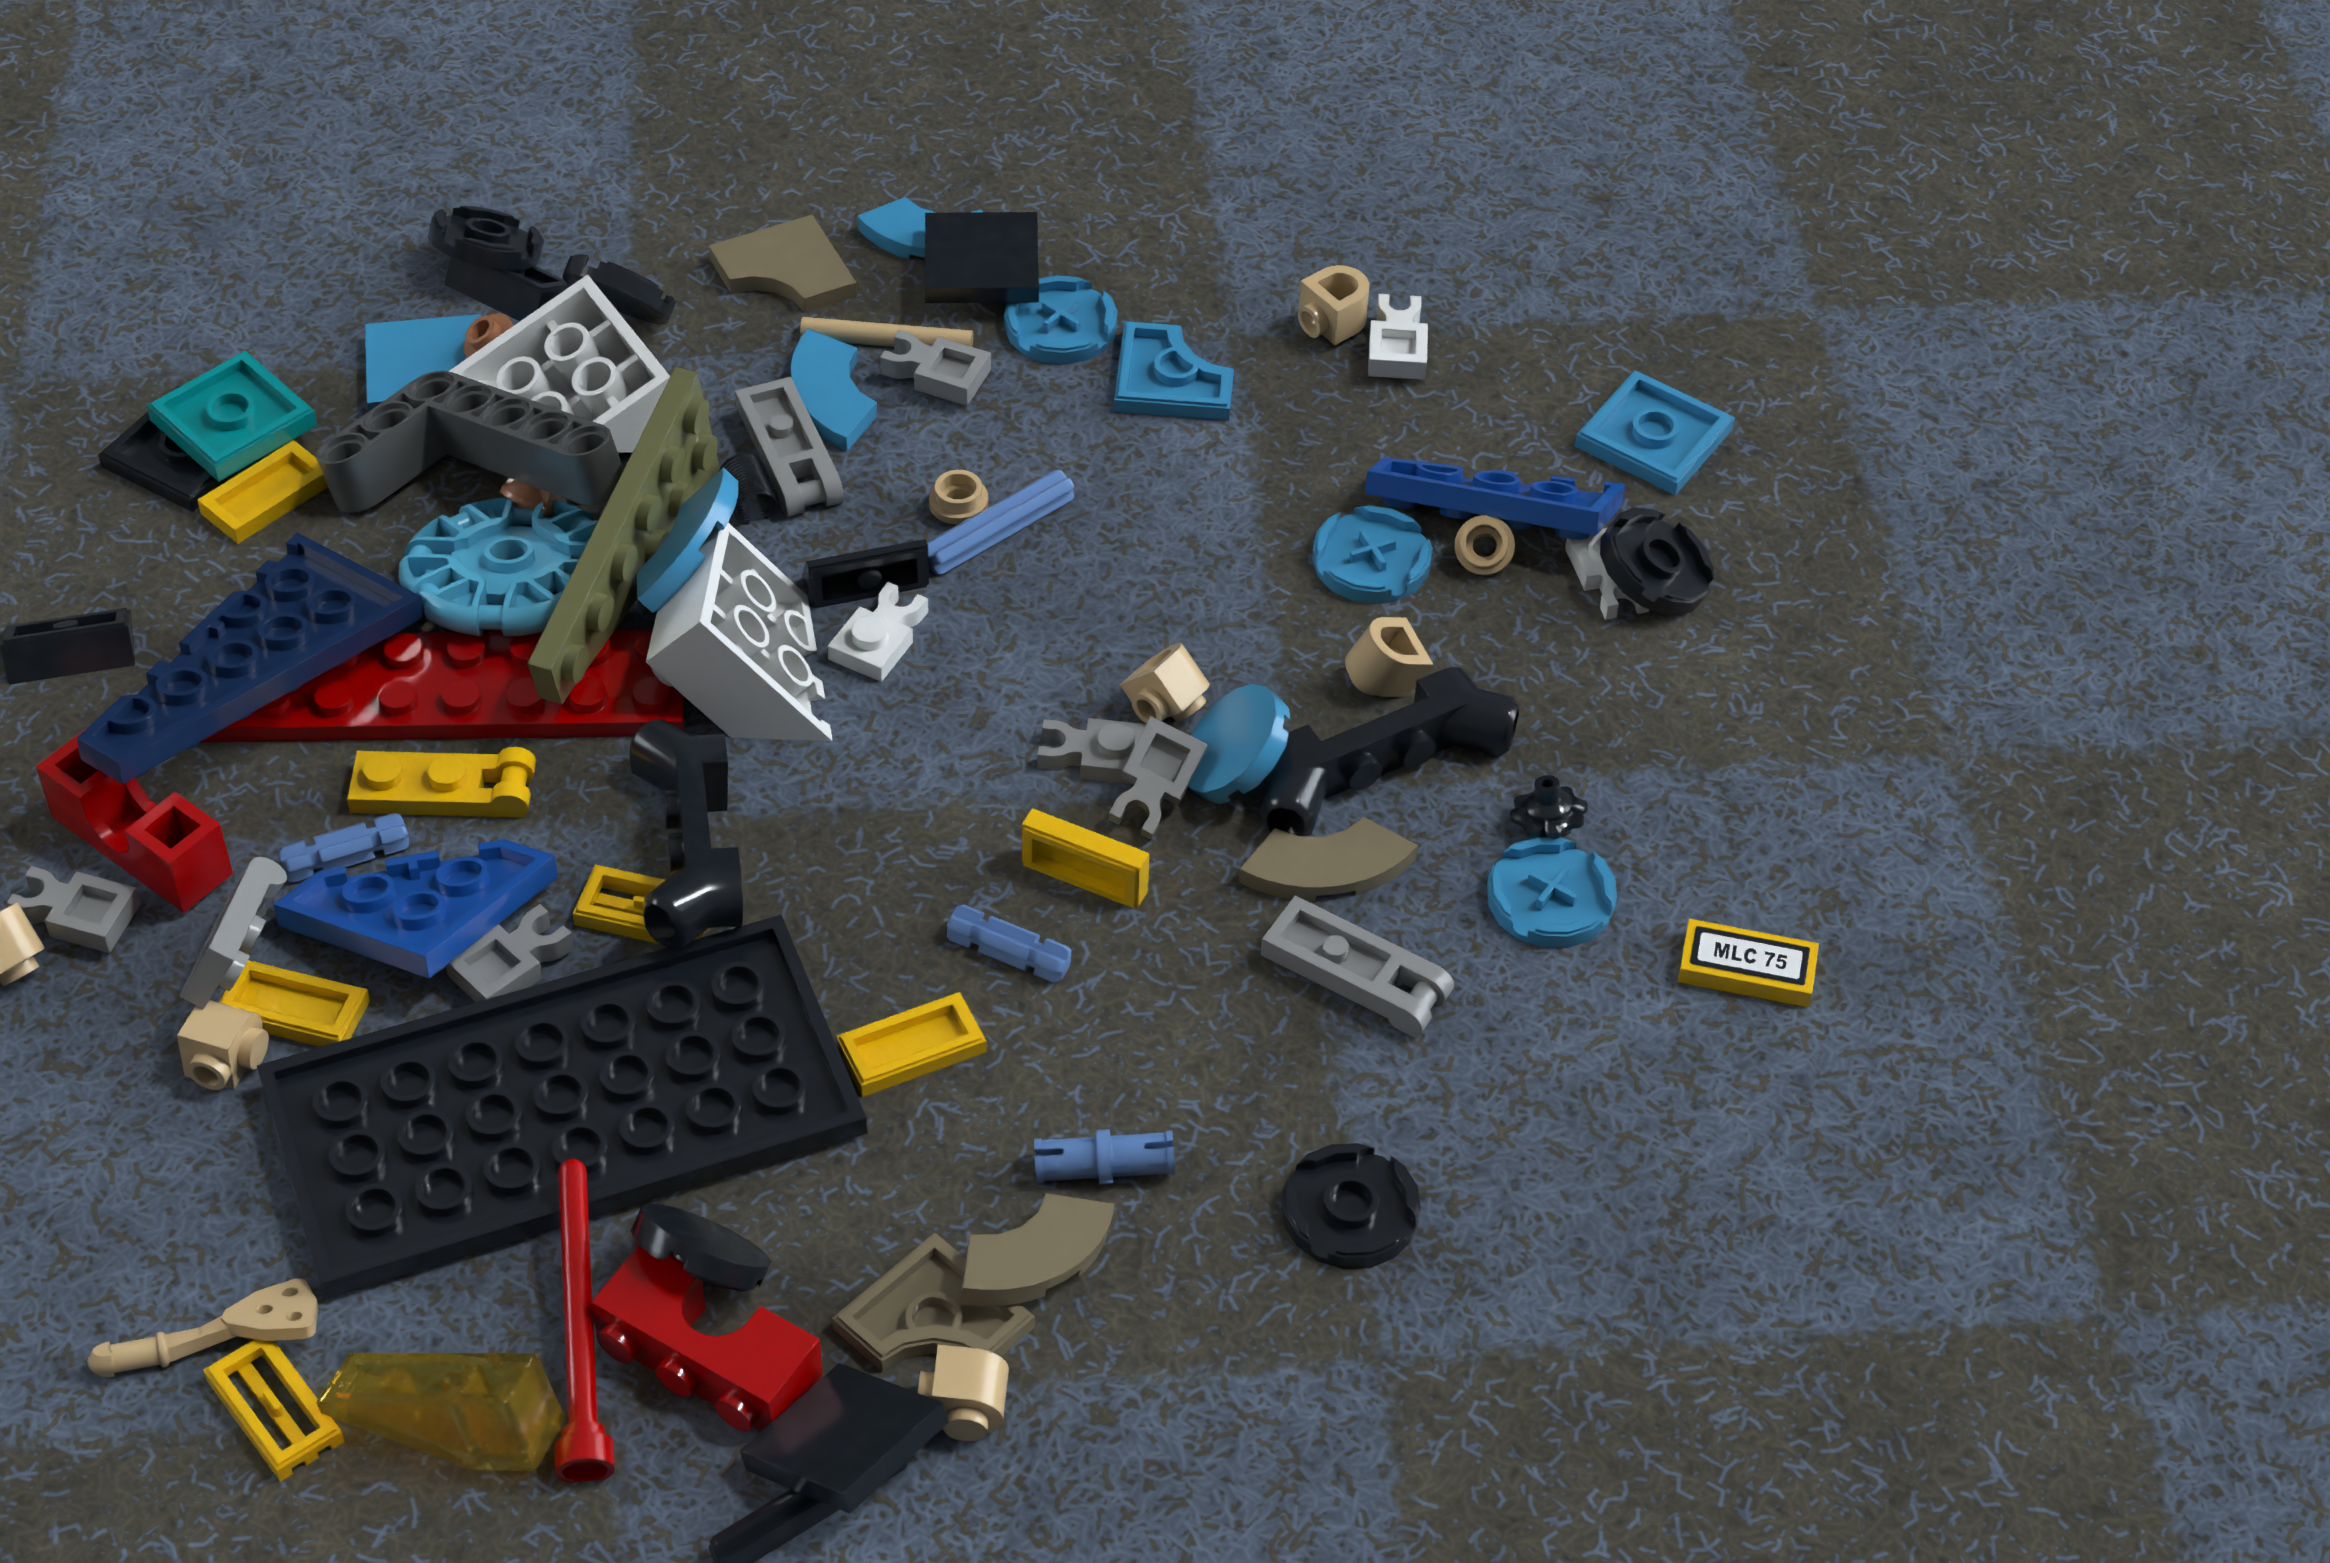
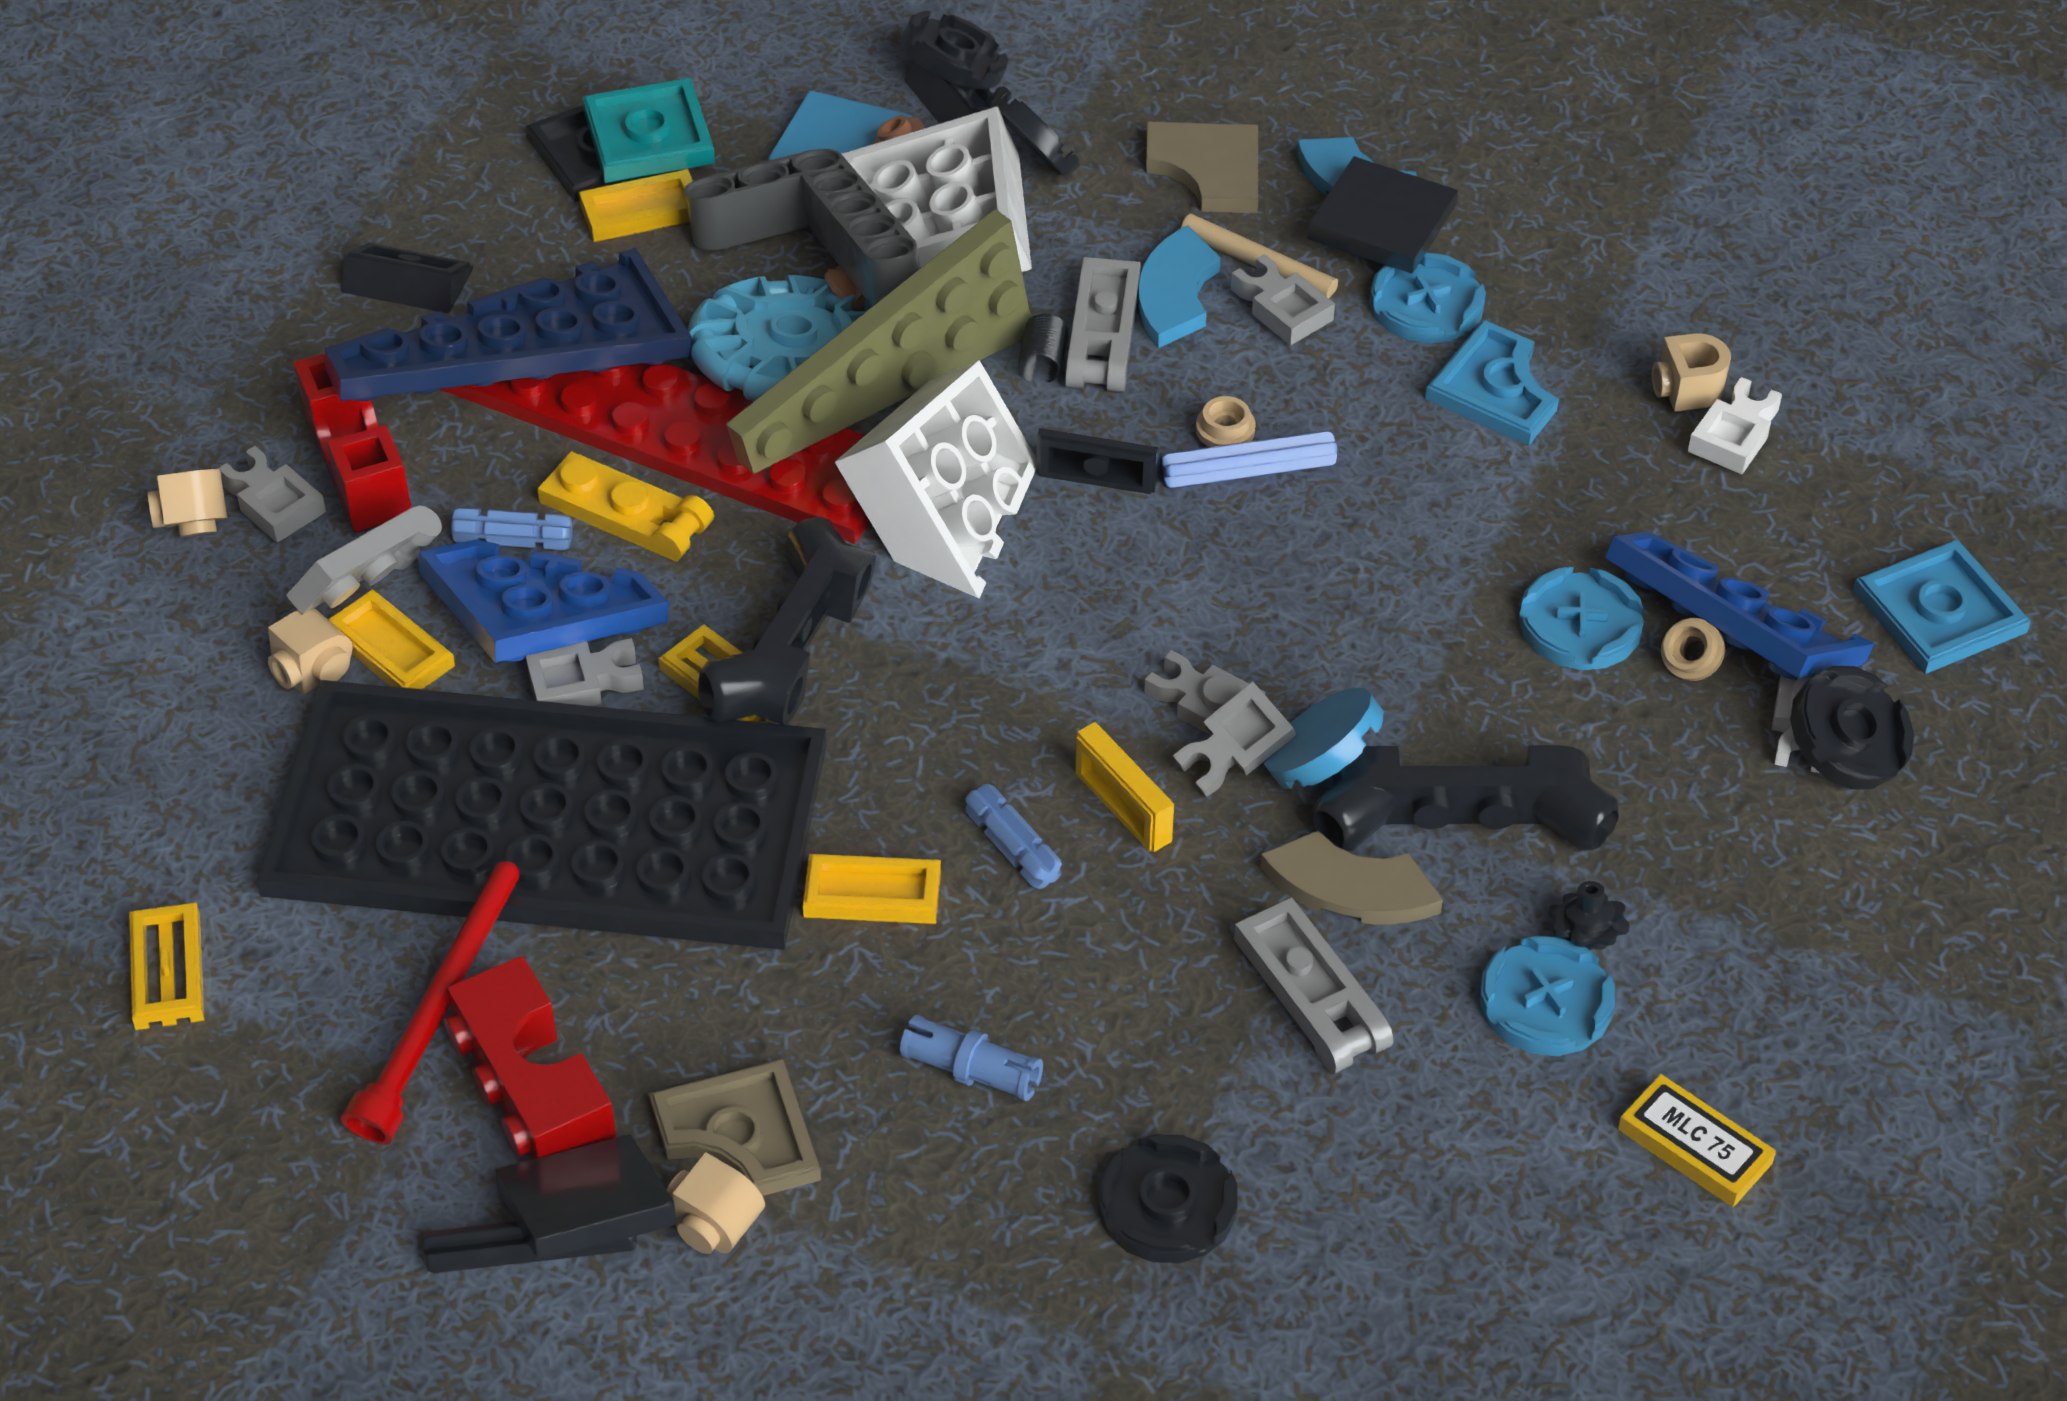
camera: 30 degrees right, 0 degrees up
(268, 1314) = (206, 890): tan piece -> none
(455, 1406) = (294, 1027): clear yellow slope -> none
(679, 553) = (923, 380): dark azure tile -> none
(705, 1247) = (569, 982): black tile -> none
(878, 639) = (1076, 522): white plate -> none
(1036, 1256) = (854, 1117): dark tan tile -> none
(1167, 686) = (1299, 664): tan plate -> none
(1387, 659) = (1523, 715): tan plate -> none

